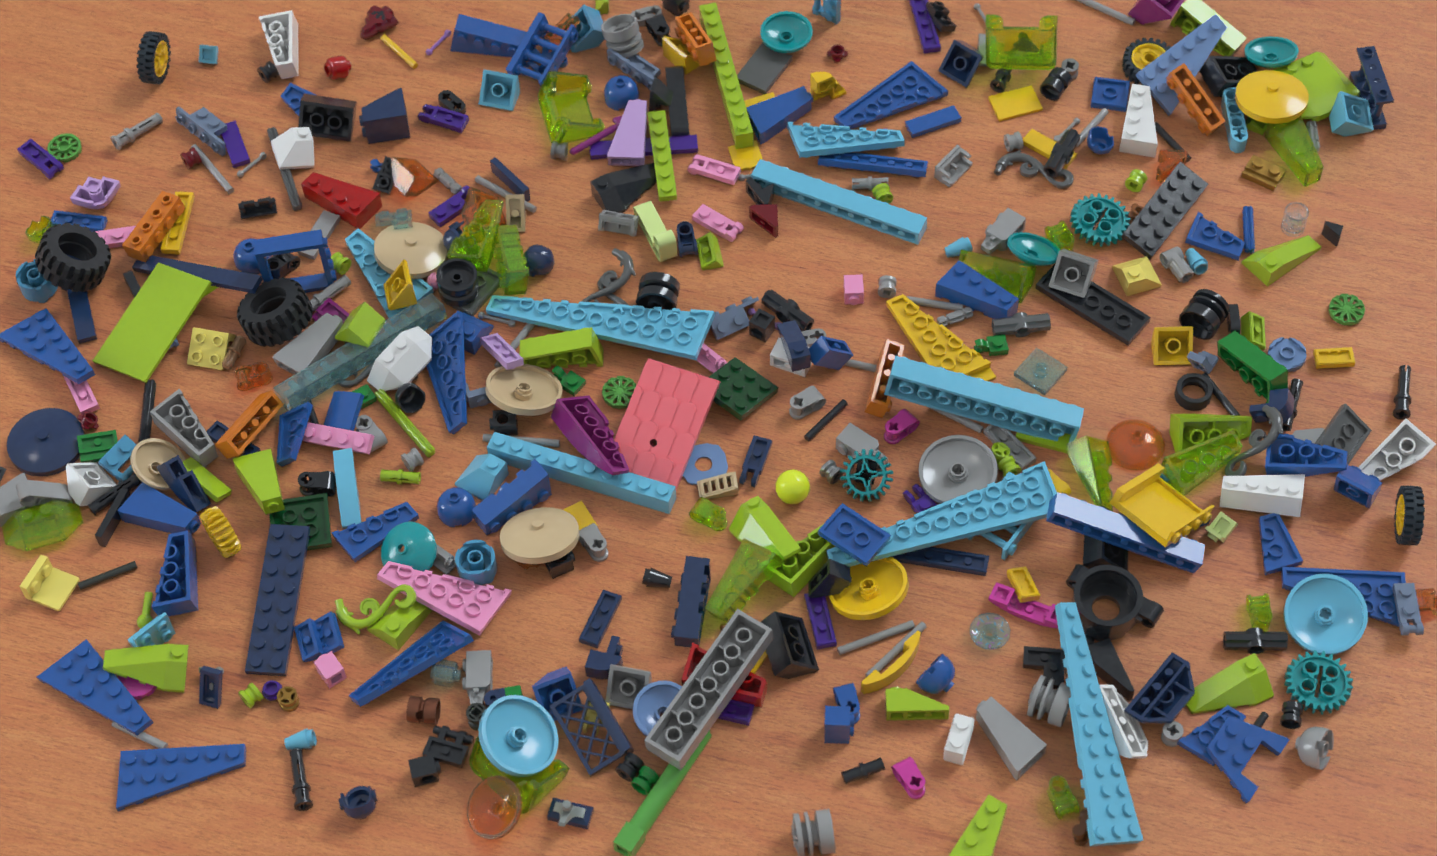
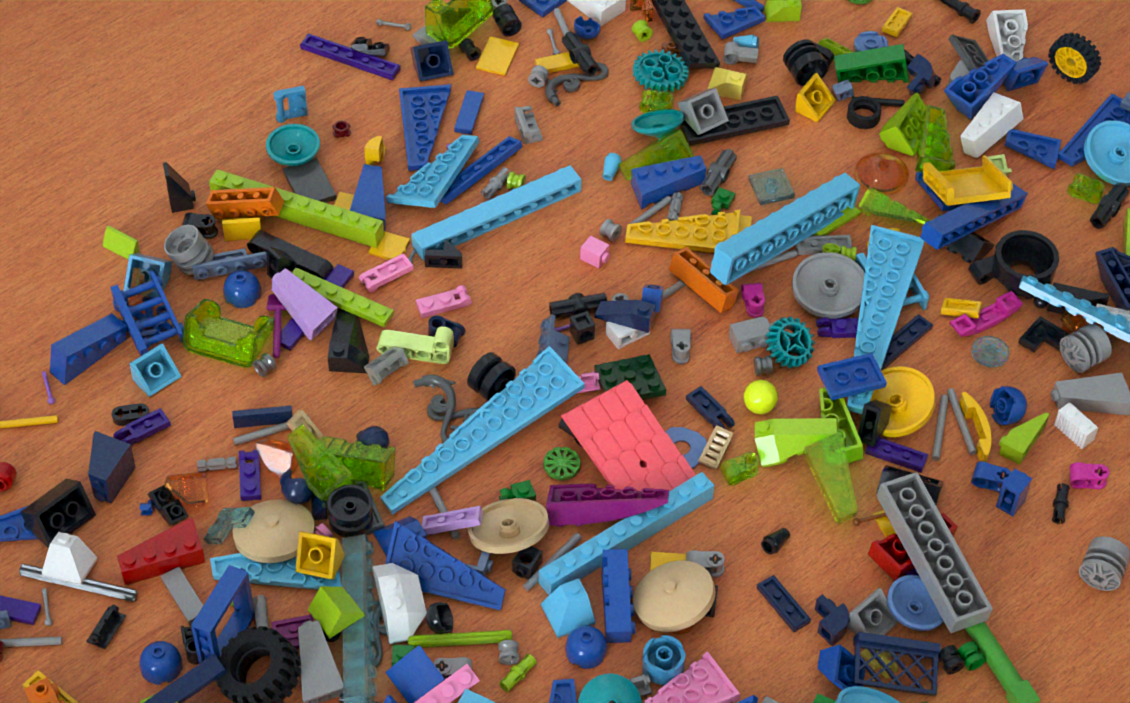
camera: 60 degrees left, 5 degrees down
(511, 323) = (418, 502): light grey hinge -> none
(563, 349) = (487, 474): lime wedge -> none
(645, 13) = (168, 226): light grey beam -> none
(692, 601) = (822, 526): dark blue wedge -> none
(709, 252) = (473, 326): lime slope -> none
(766, 217) = (472, 266): dark red slope -> none
(825, 420) = (705, 342): black bar -> none
(998, 232) = (619, 131): light grey hinge -> none
(1254, 440) = (951, 102): dark grey plant -> none

